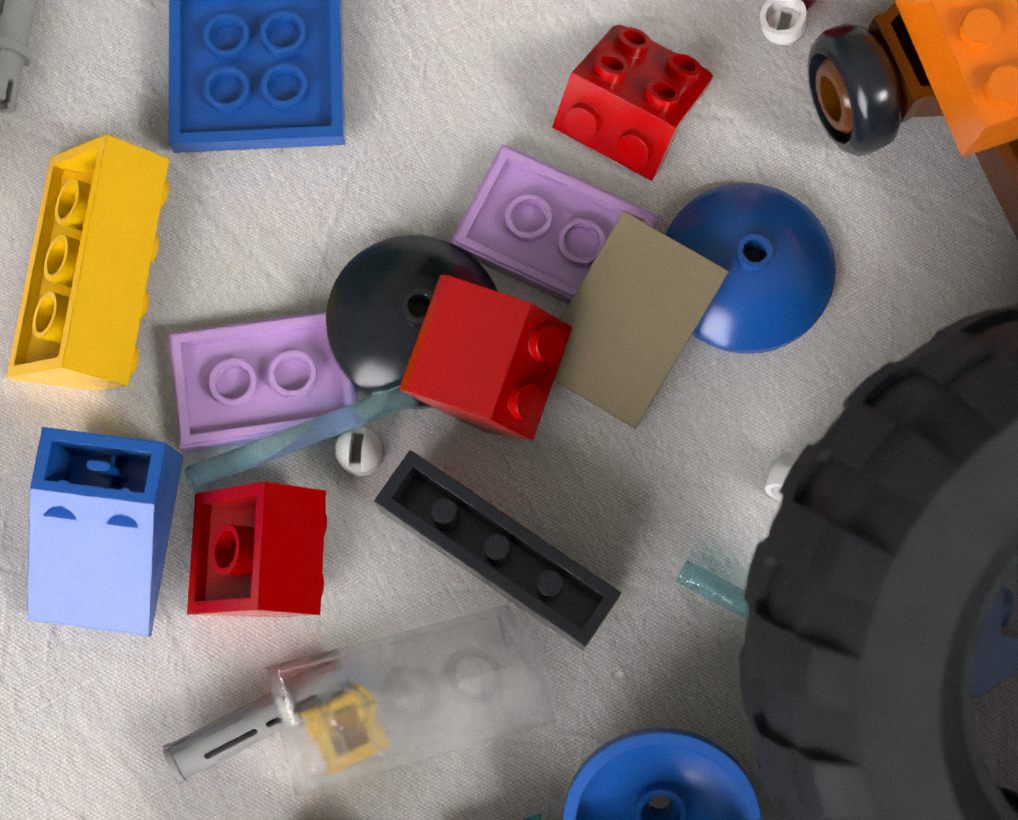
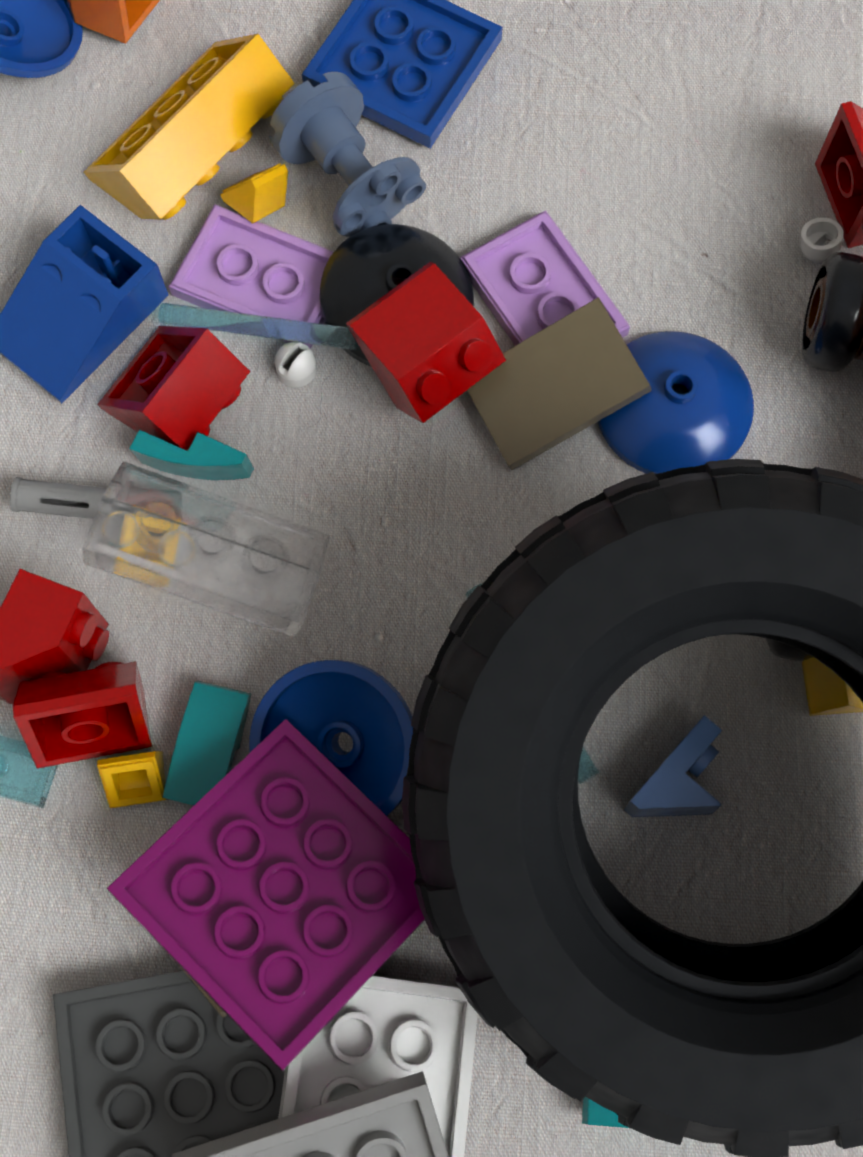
camera: 30 degrees right, 5 degrees down
(205, 296) = (259, 193): none -> yellow slope
(237, 193) = (322, 127): none -> sand blue piece
(338, 607) = (204, 459): none -> teal slope
(497, 549) = (345, 485): black brick -> none
(631, 99) = (660, 228): red bracket -> none

